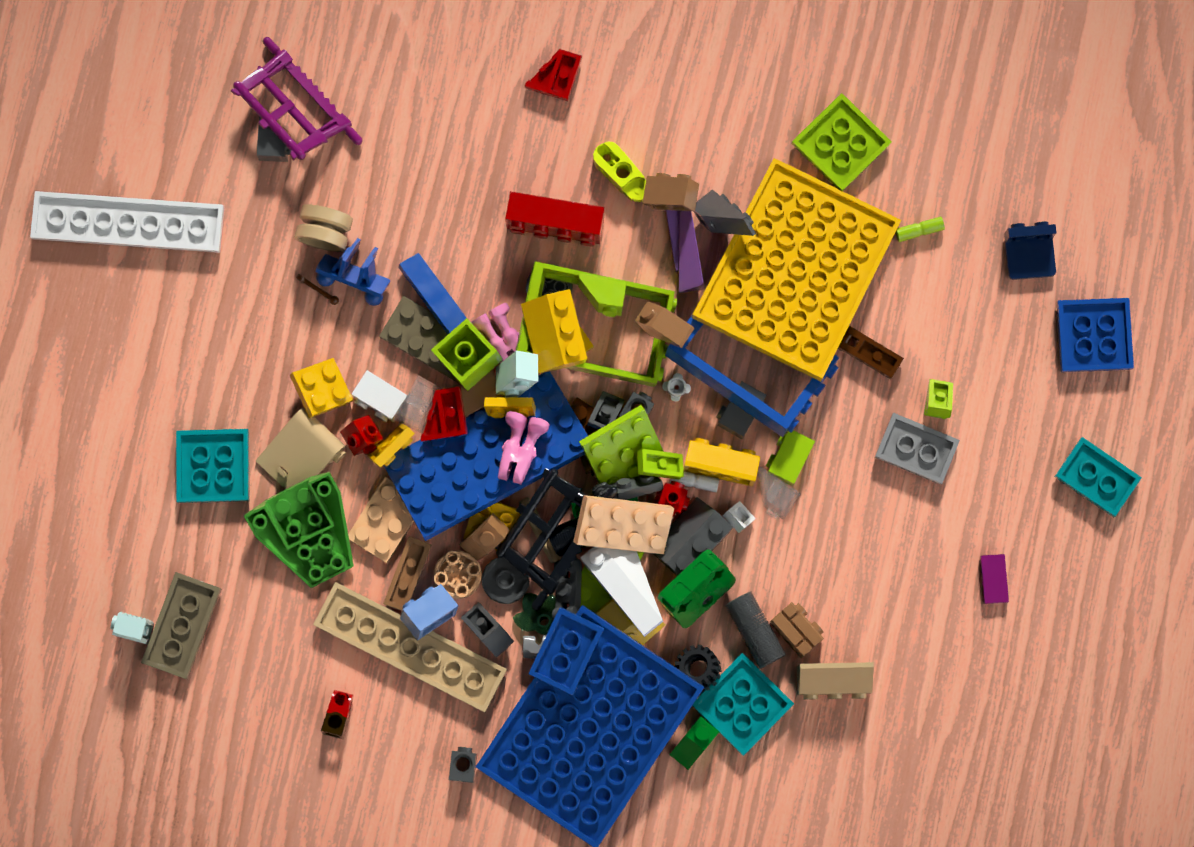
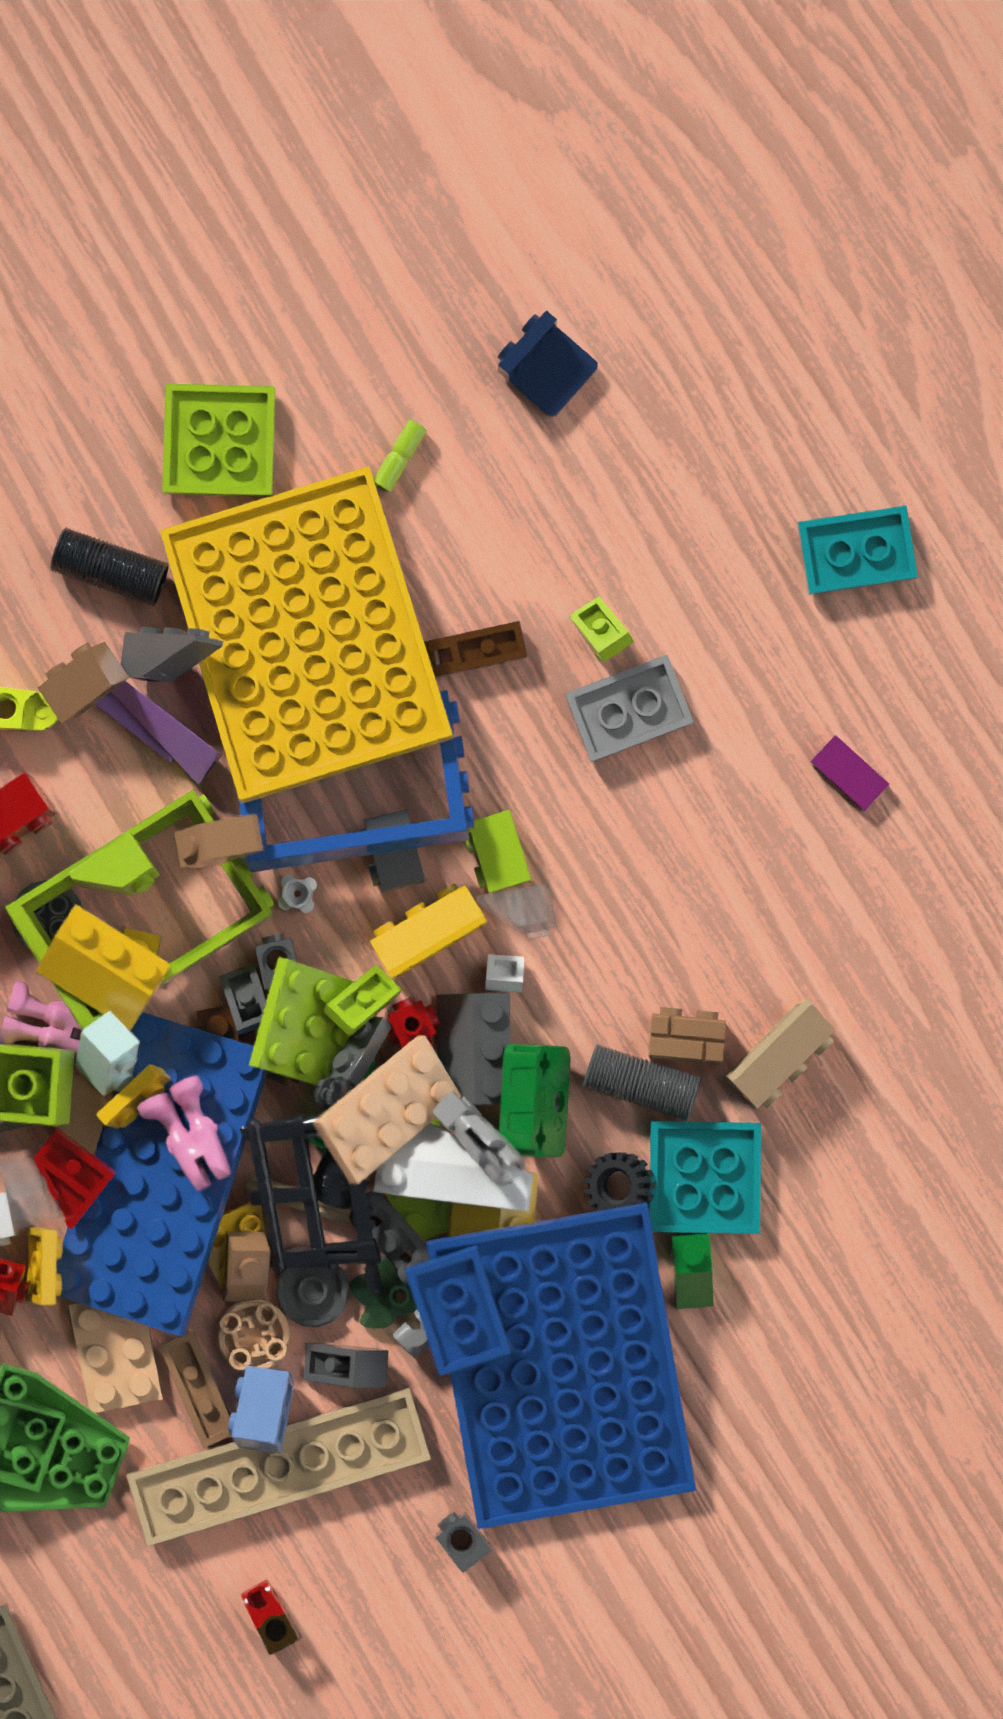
camera: 45 degrees left, 5 degrees up
(654, 579) = (478, 1137): none -> light grey piece
(699, 481) = (422, 976): white piece -> none
(737, 158) = (114, 569): none -> black piece
(1095, 335) = (705, 392): blue plate -> none

